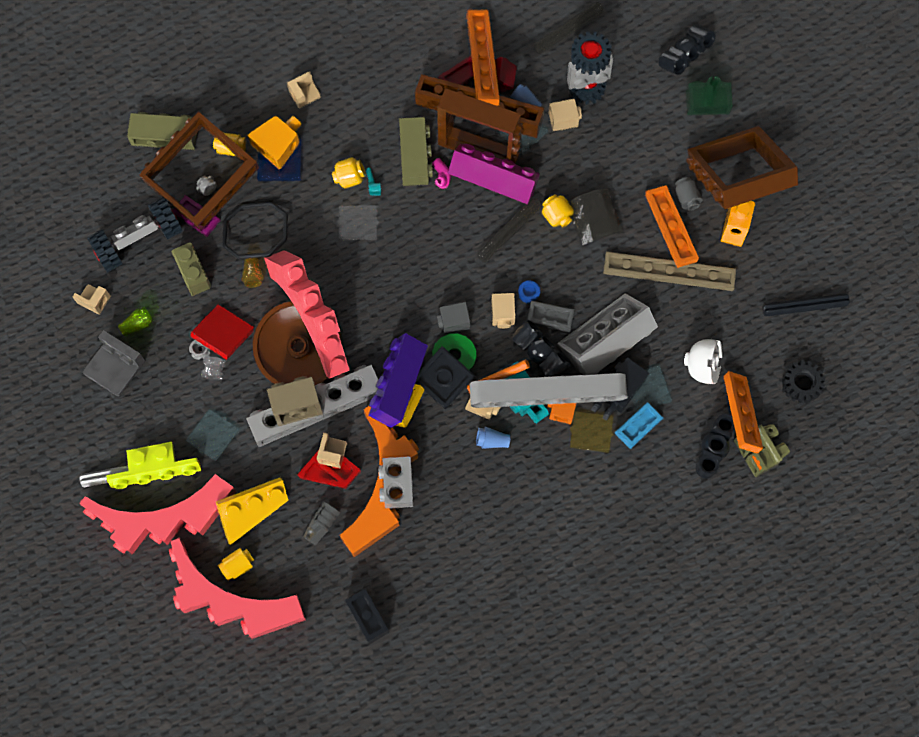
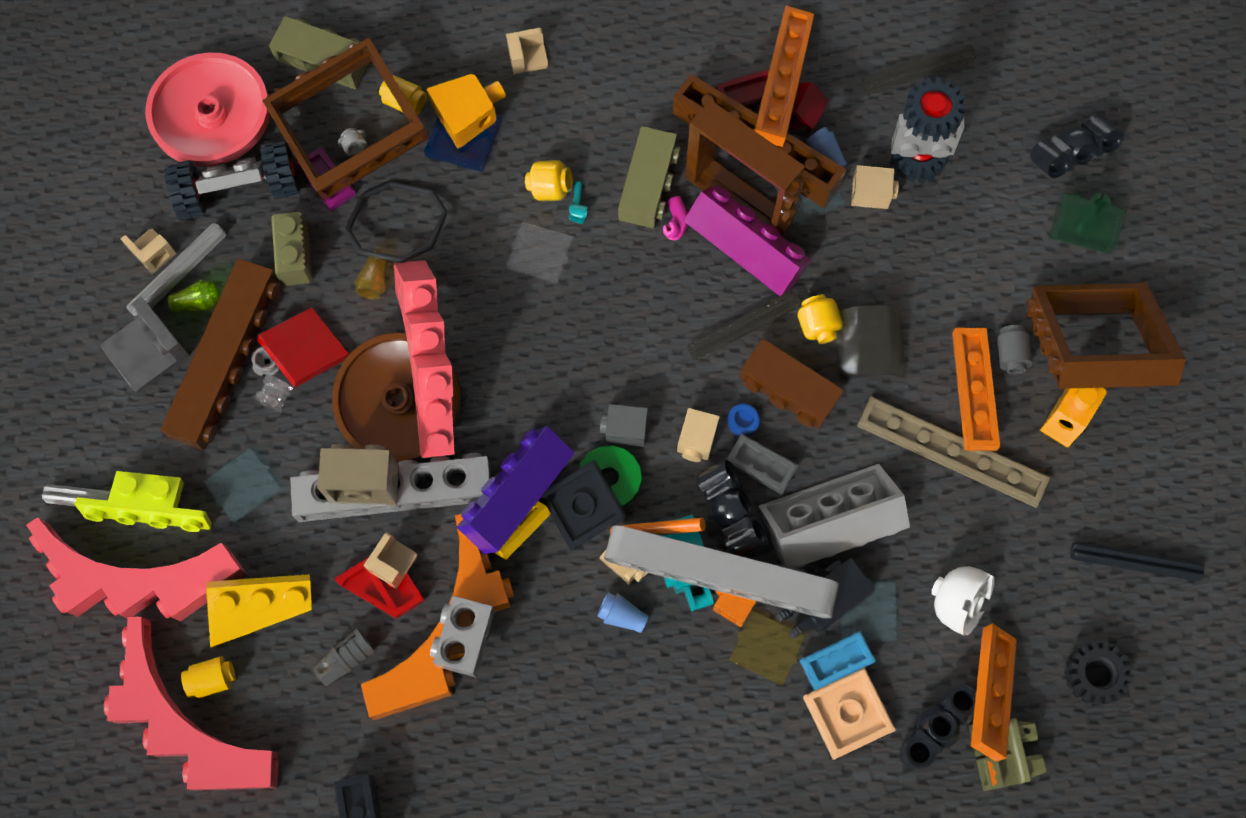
camera: 20 degrees right, 0 degrees up
(100, 192) = (207, 109): none -> coral dish
(117, 305) = (180, 266): none -> light grey axle
(168, 353) = (221, 355): none -> reddish brown brick
(552, 259) = (790, 384): none -> reddish brown brick
(656, 455) = (849, 713): none -> light nougat plate

